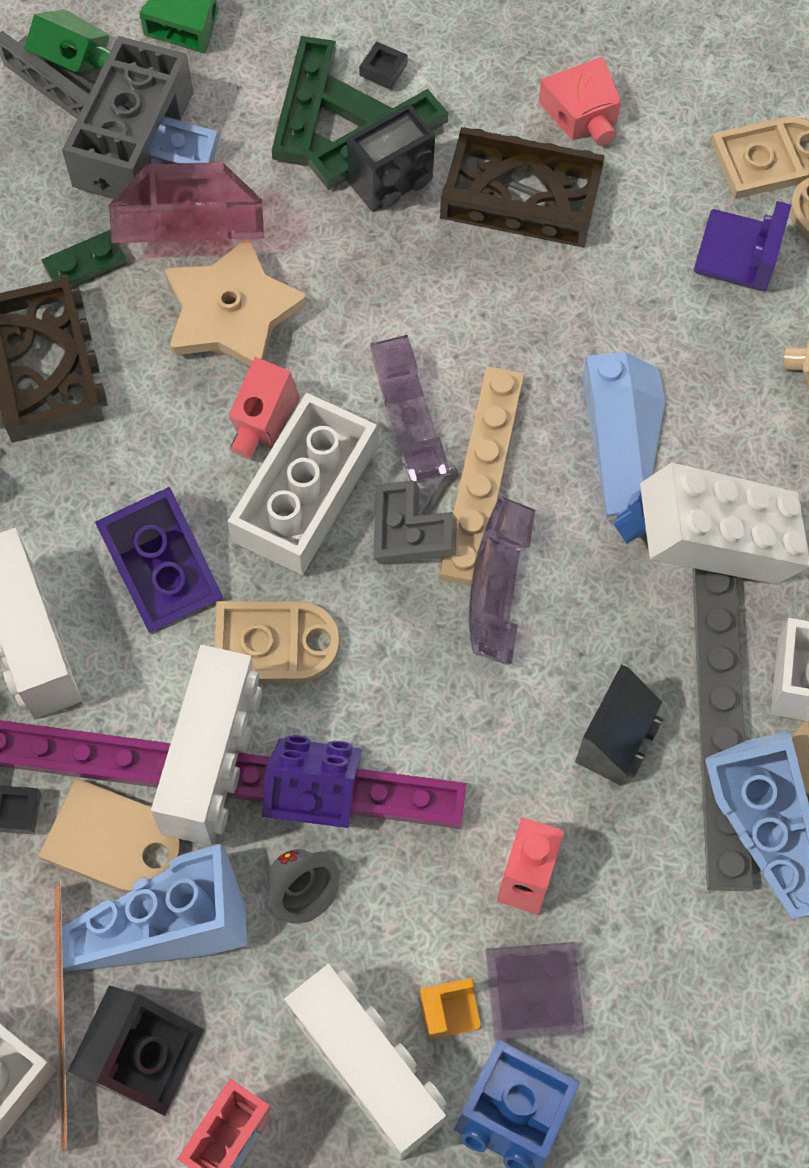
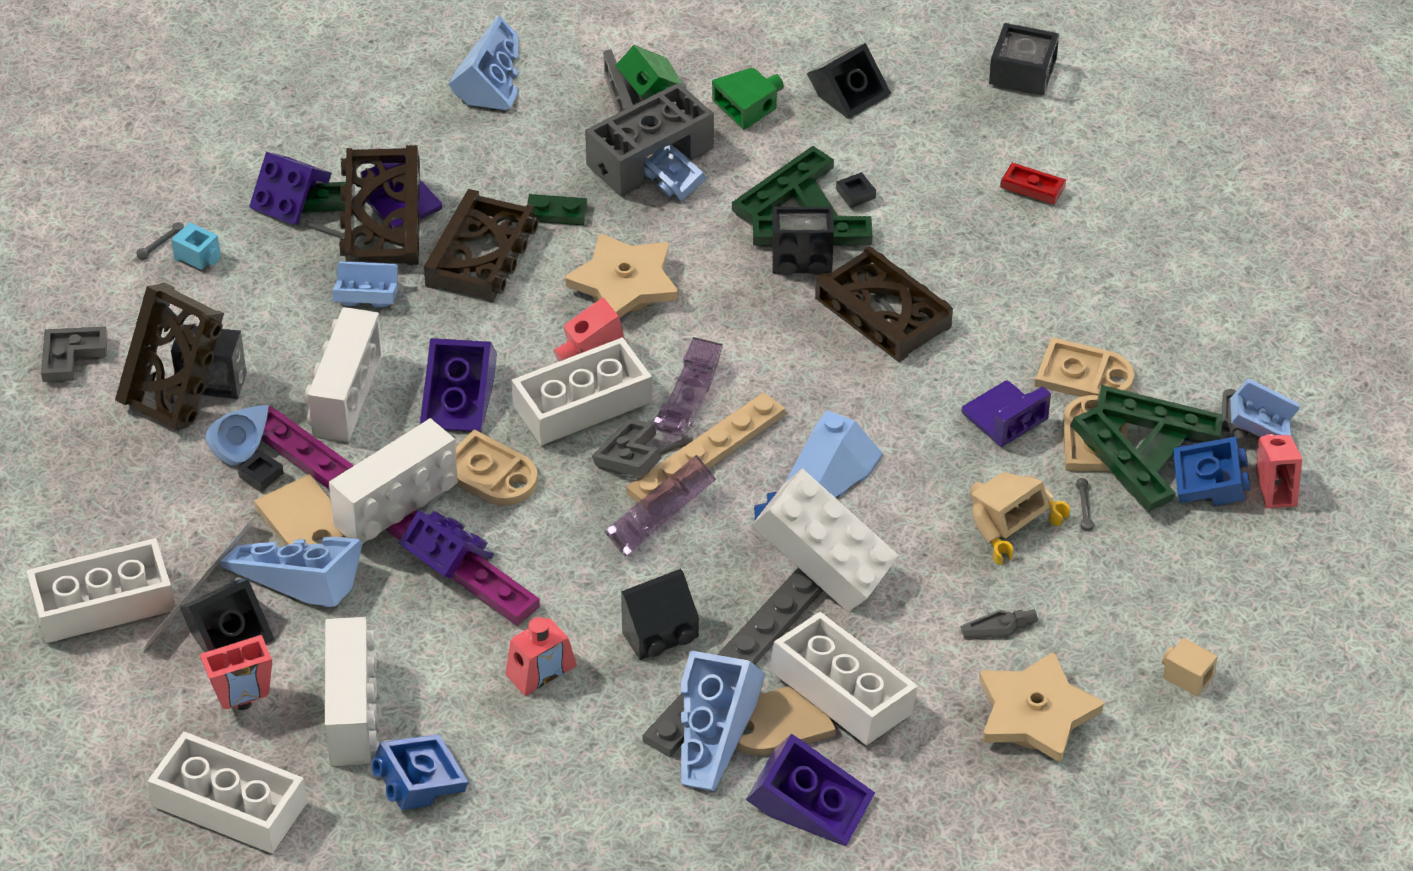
camera: 35 degrees right, 20 degrees down
(186, 205) = (639, 201): clear pink wedge -> none
(302, 885) = (392, 593): dark grey hat -> none
(450, 1009) = (424, 703): light orange panel -> none
(534, 991) = (485, 728): clear purple plate -> none
(582, 101) = (975, 273): coral torso -> none

